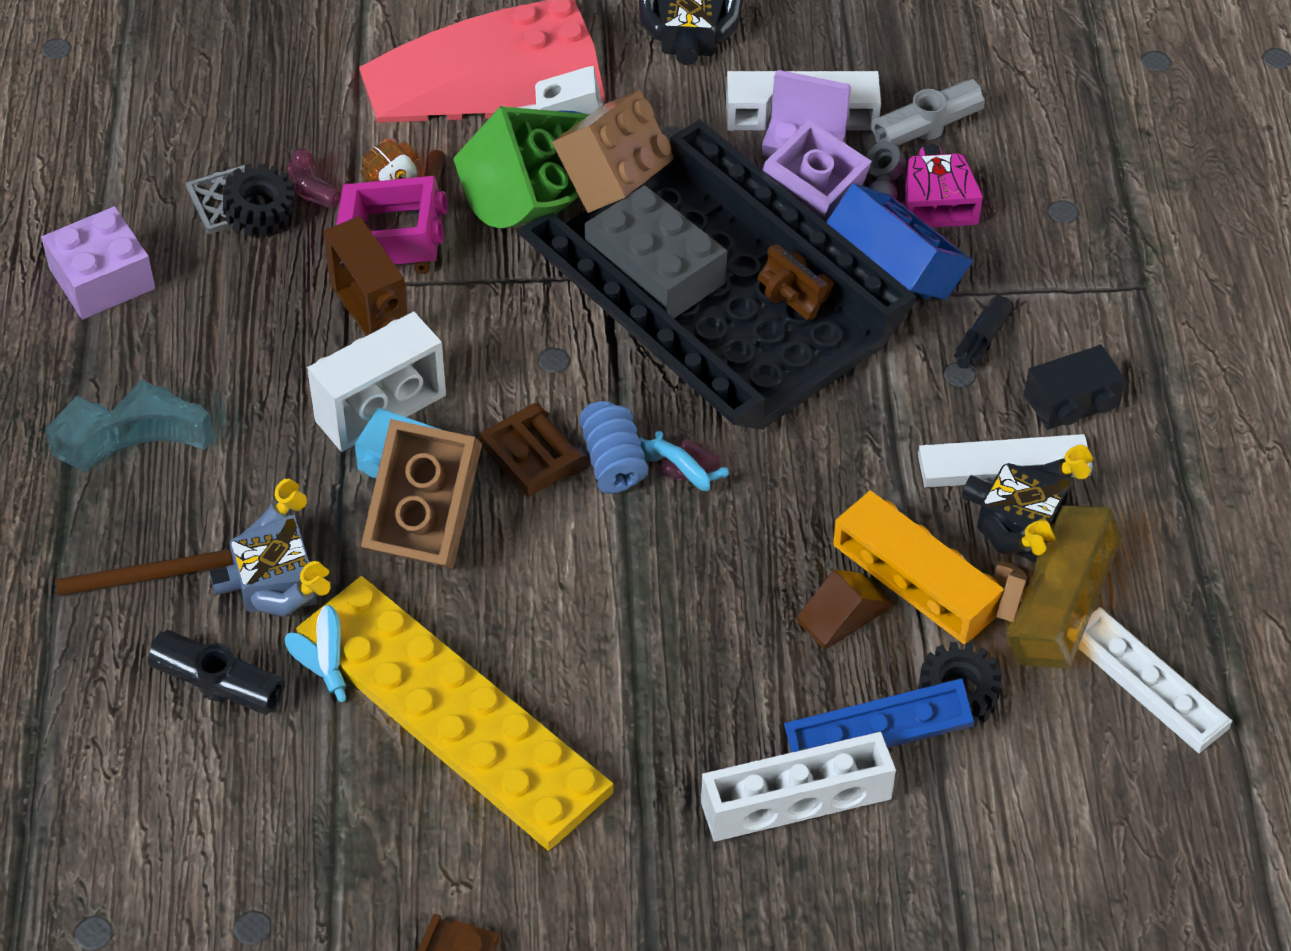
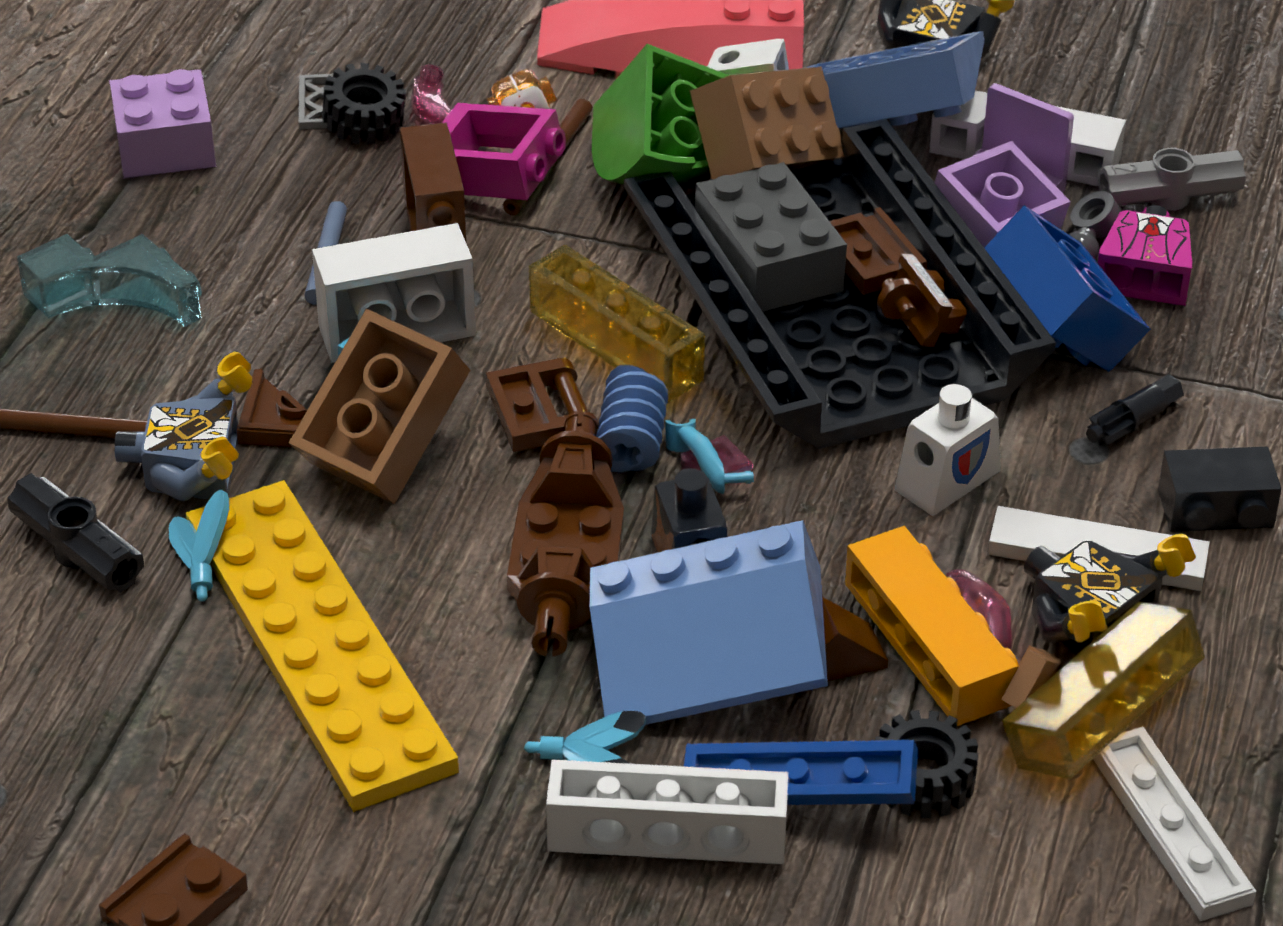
camera: 20 degrees right, 10 degrees down
(290, 350) = (329, 236): none -> sand blue bar
(327, 519) = (268, 414): none -> reddish brown tile
(562, 359) = (615, 320): none -> clear yellow brick
(607, 565) = (562, 529): none -> reddish brown plate
(689, 76) = (904, 81): none -> medium blue slope
(703, 742) = (593, 740): none -> medium azure piece
(709, 543) = (686, 512): none -> black torso
(743, 240) = (873, 249): none -> reddish brown plate
(761, 621) = (710, 624): none -> medium blue slope
(872, 396) = (948, 451): none -> white torso
(946, 533) = (988, 602): none -> clear pink arm

